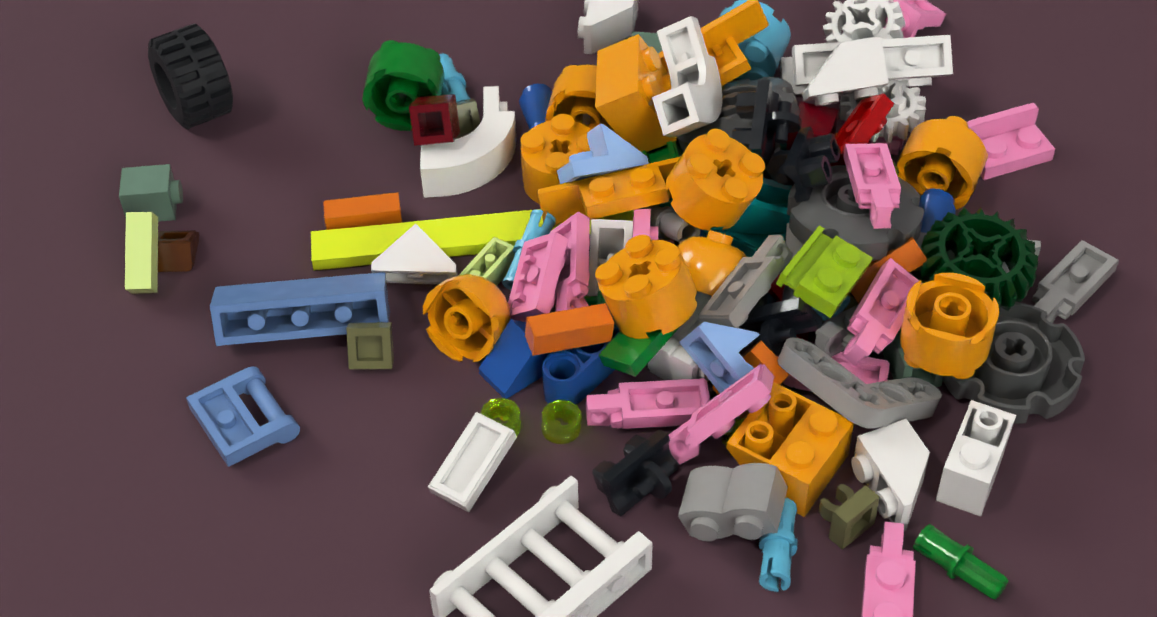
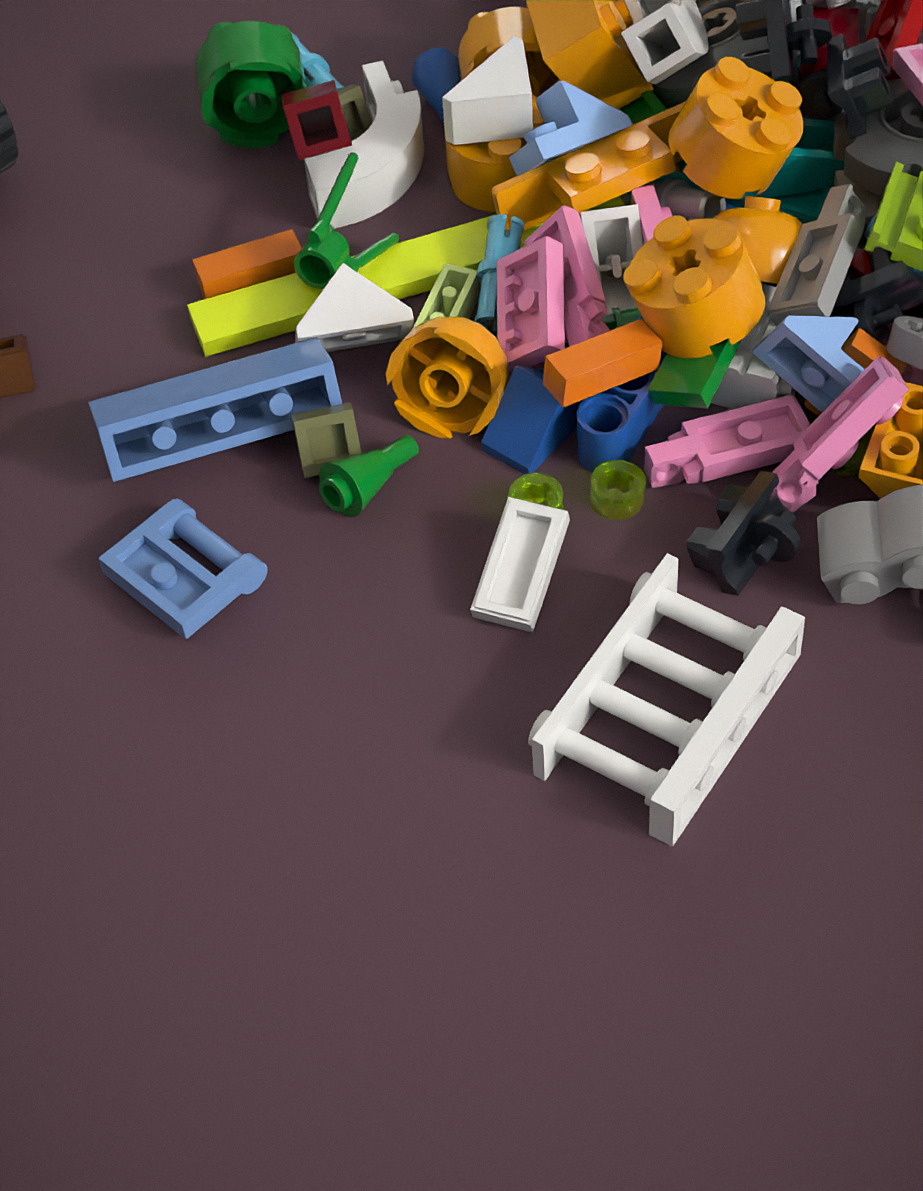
camera: 10 degrees left, 5 degrees up
(379, 378) = (353, 481): none -> green cone
(415, 210) = (329, 249): none -> green plant
(554, 128) = (491, 100): none -> white slope

